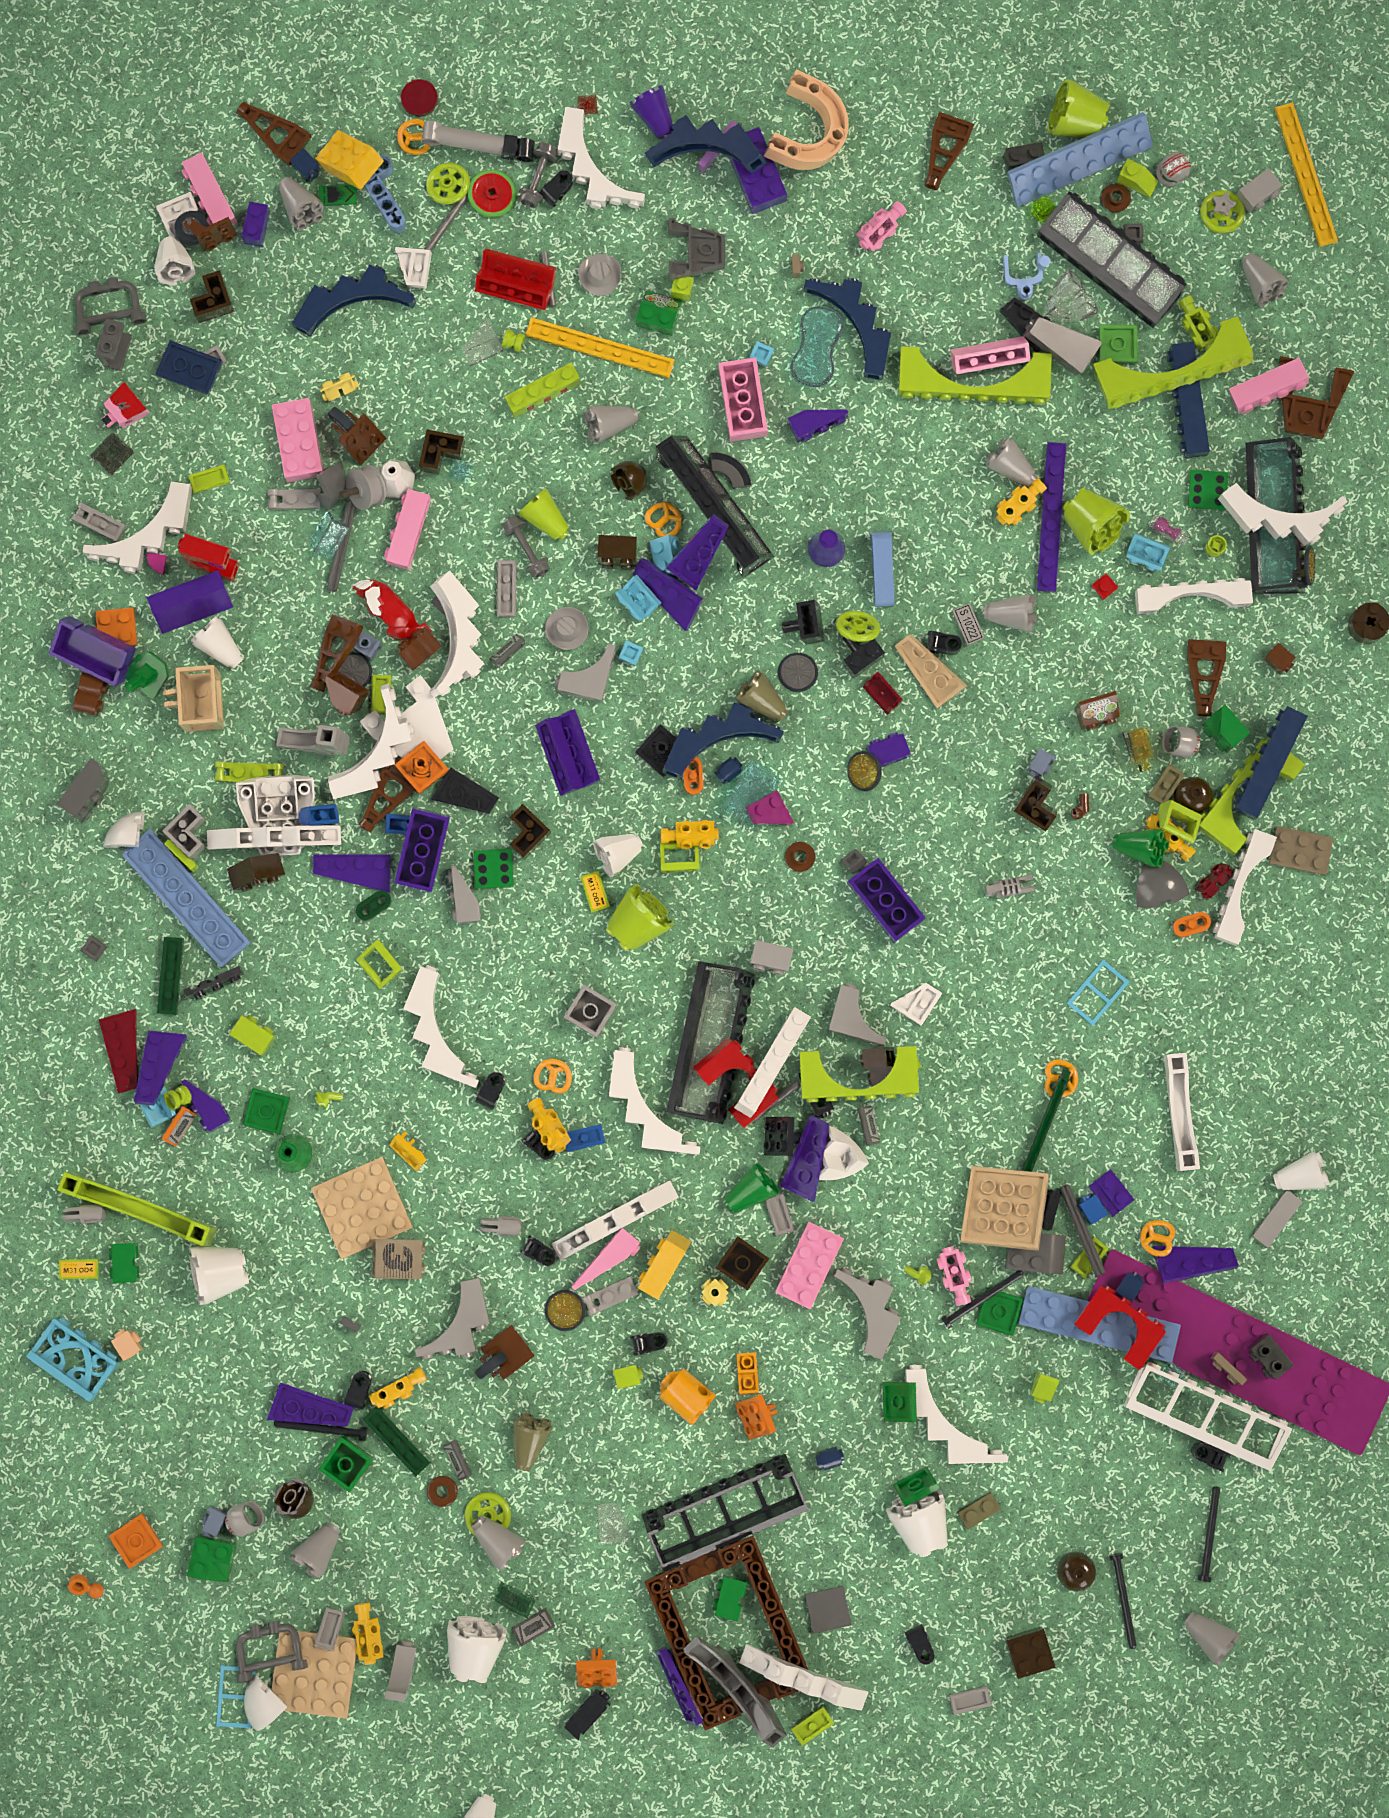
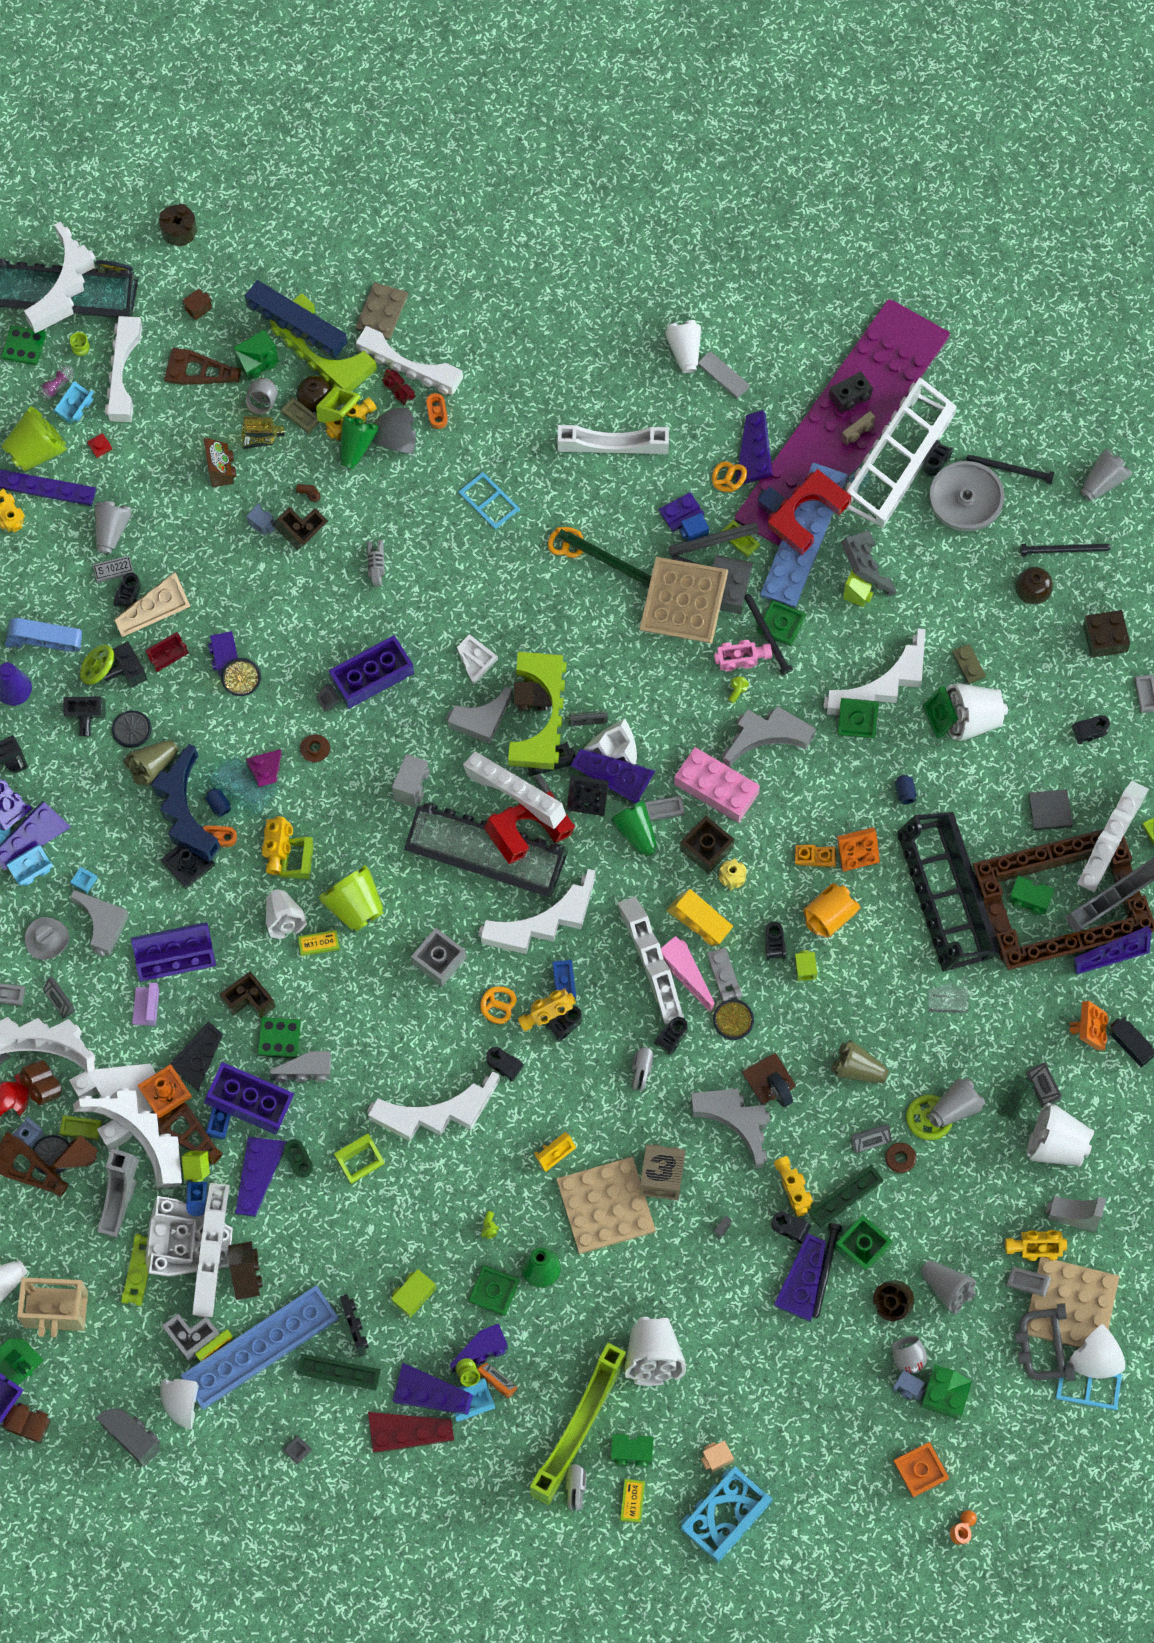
camera: 80 degrees left, 15 degrees down
(352, 809) = (195, 1165): none -> lime brick
(510, 735) = (146, 1005): none -> lavender panel
(1073, 1387) = (858, 553): none -> dark grey wing
(1167, 1491) = (966, 496): none -> light grey dish

